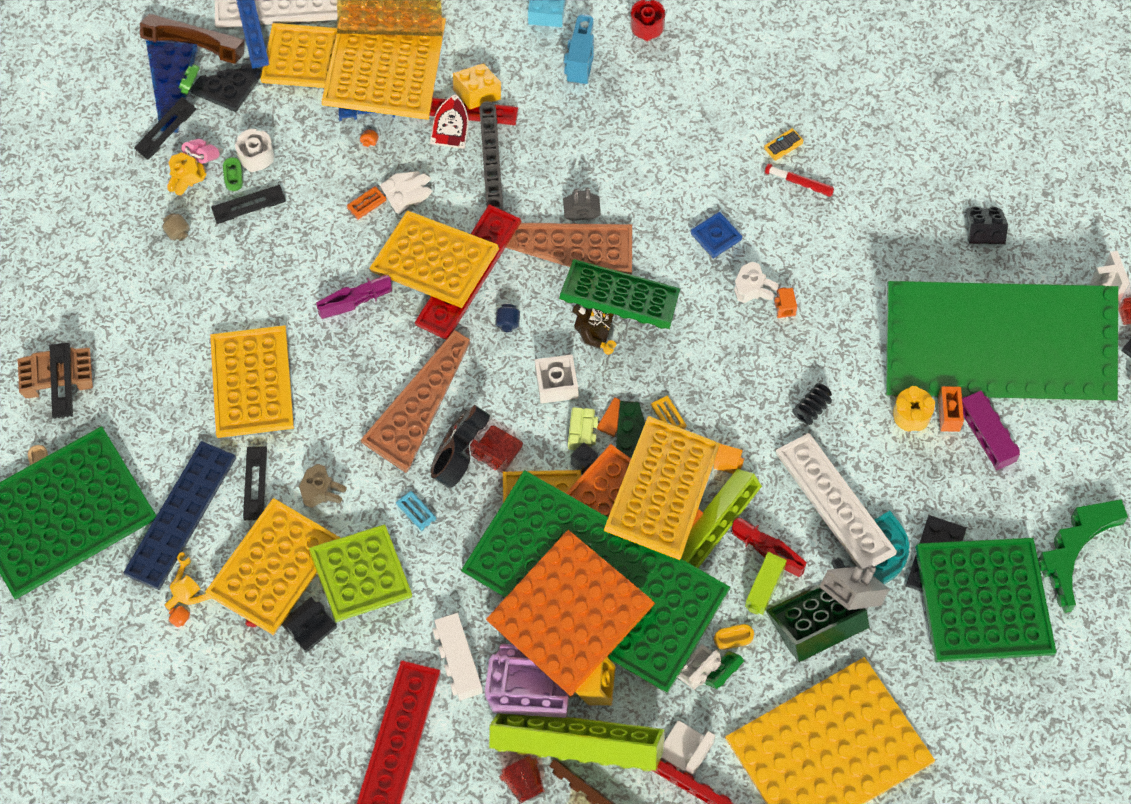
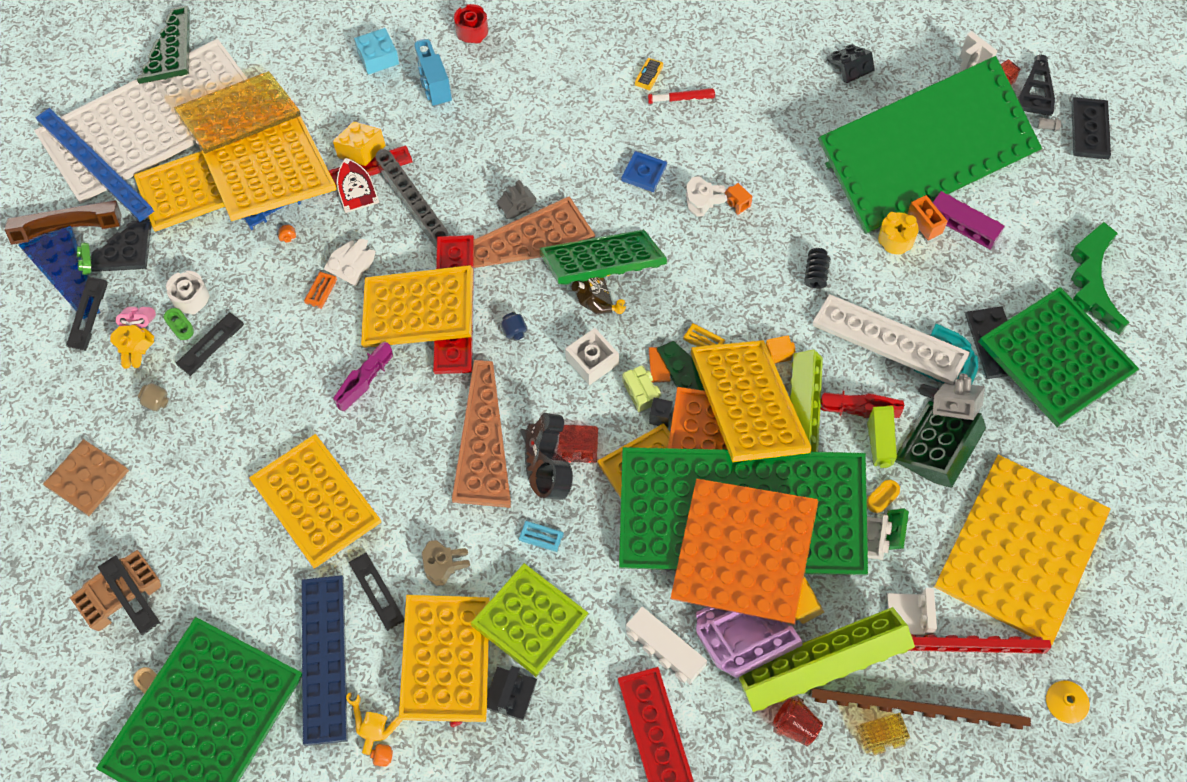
camera: 30 degrees left, 0 degrees up
(86, 267) = (86, 477): none -> medium nougat plate

